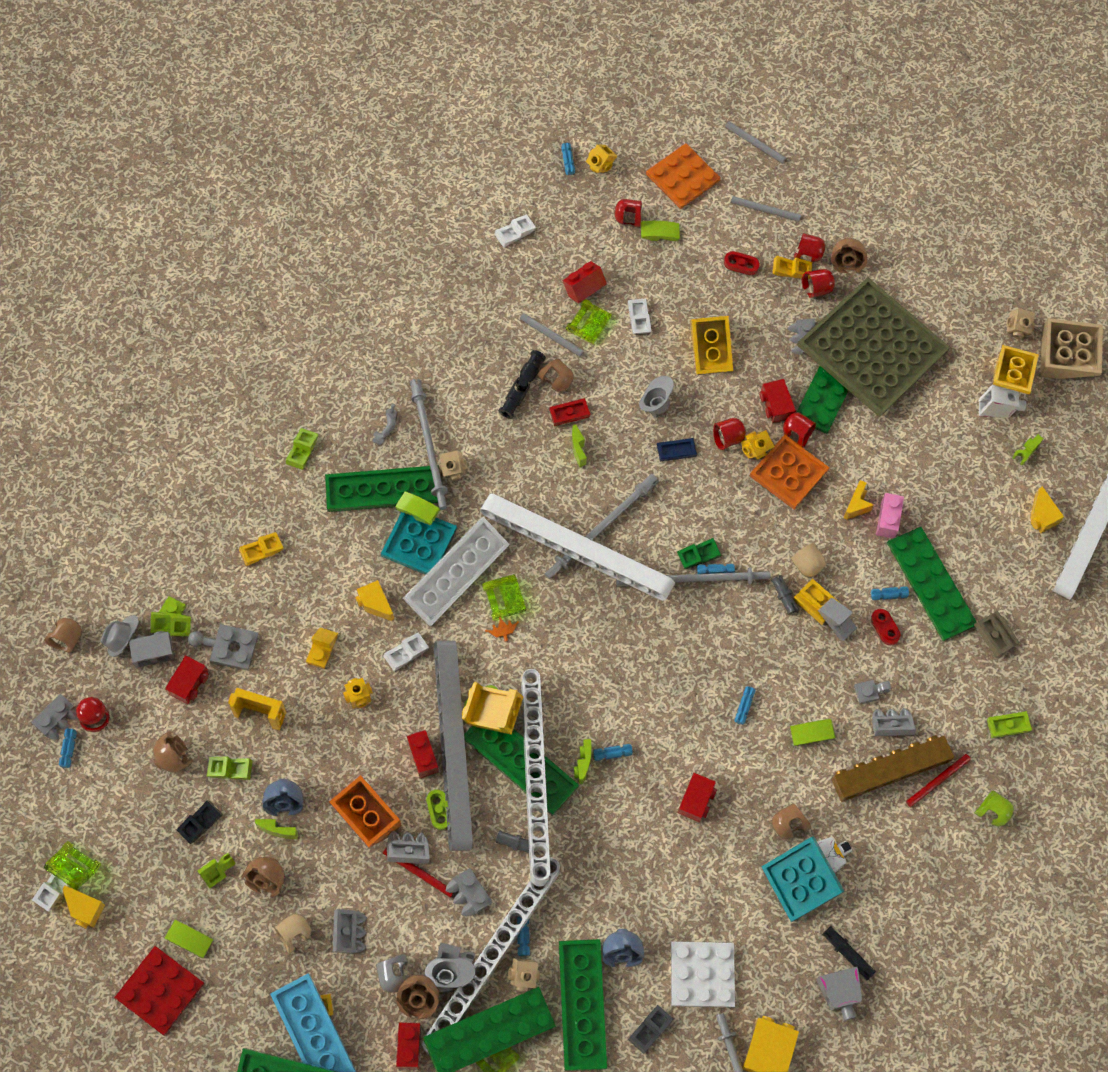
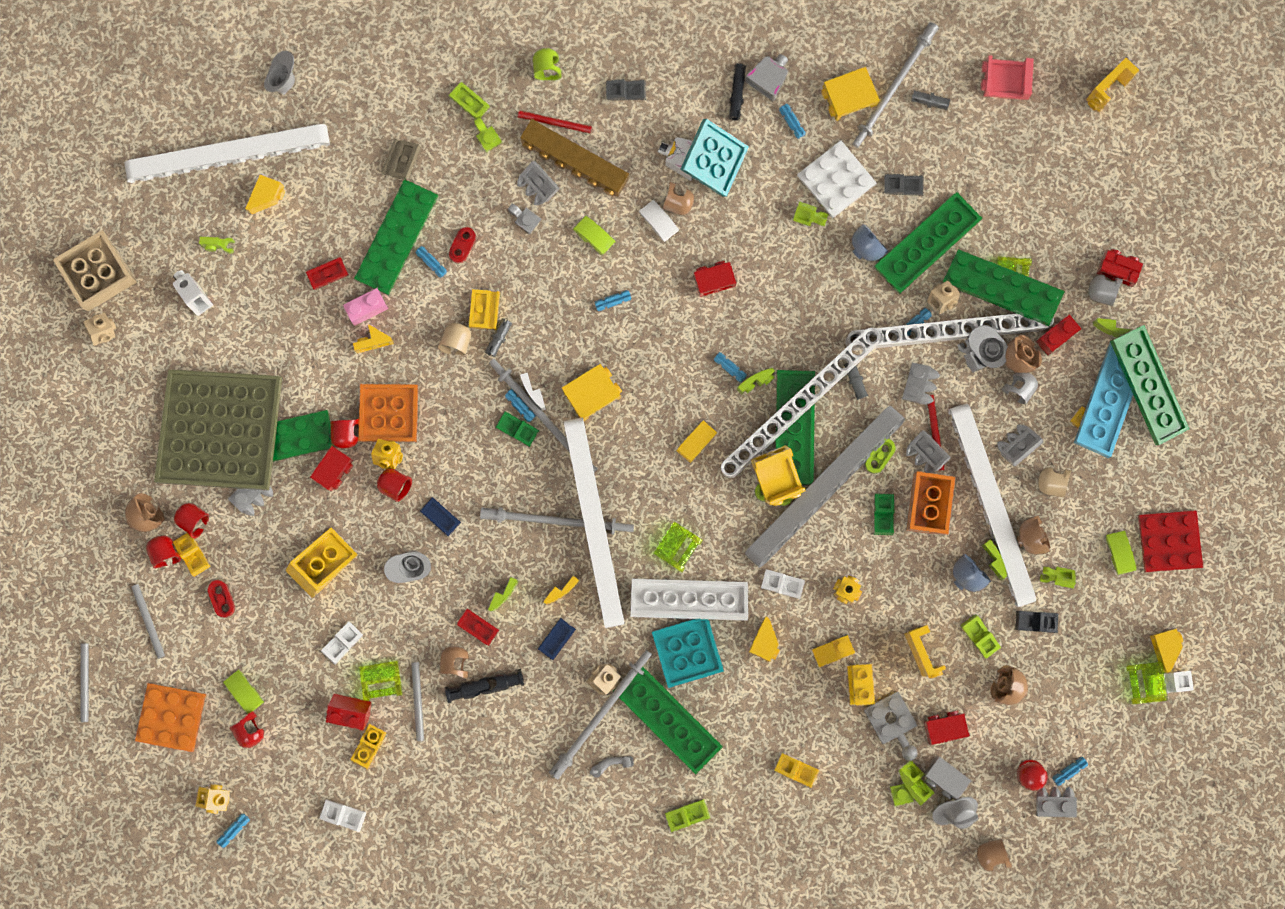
camera: 130 degrees left, 15 degrees up
(277, 638) = (860, 684): none -> yellow panel
(322, 864) = (993, 505): none -> white beam
(390, 774) = (884, 514): none -> green slope
(418, 508) = (664, 673): lime slope -> none
(422, 754) = (851, 501): red brick -> none
(503, 629) = (703, 526): orange piece -> none
(512, 459) = (556, 639): none -> dark blue tile
(545, 484) = (556, 594): none -> yellow slope
(548, 280) = (368, 746): none -> yellow slope
(574, 677) = (696, 441): none -> yellow slope
(681, 628) = (592, 391): none -> yellow panel
(689, 921) = (807, 214): none -> lime plate
(711, 585) = (535, 395): none -> white slope
(784, 793) = (659, 220): none -> white slope
(785, 979) = (792, 121): none -> dark azure axle
(838, 618) = (487, 282): light grey slope -> none
(922, 860) = (625, 90): none -> dark grey slope
(940, 510) = (327, 273): none -> red plate
(965, 716) = (488, 137): none -> lime plate
(1015, 369) = (154, 299): yellow slope -> none

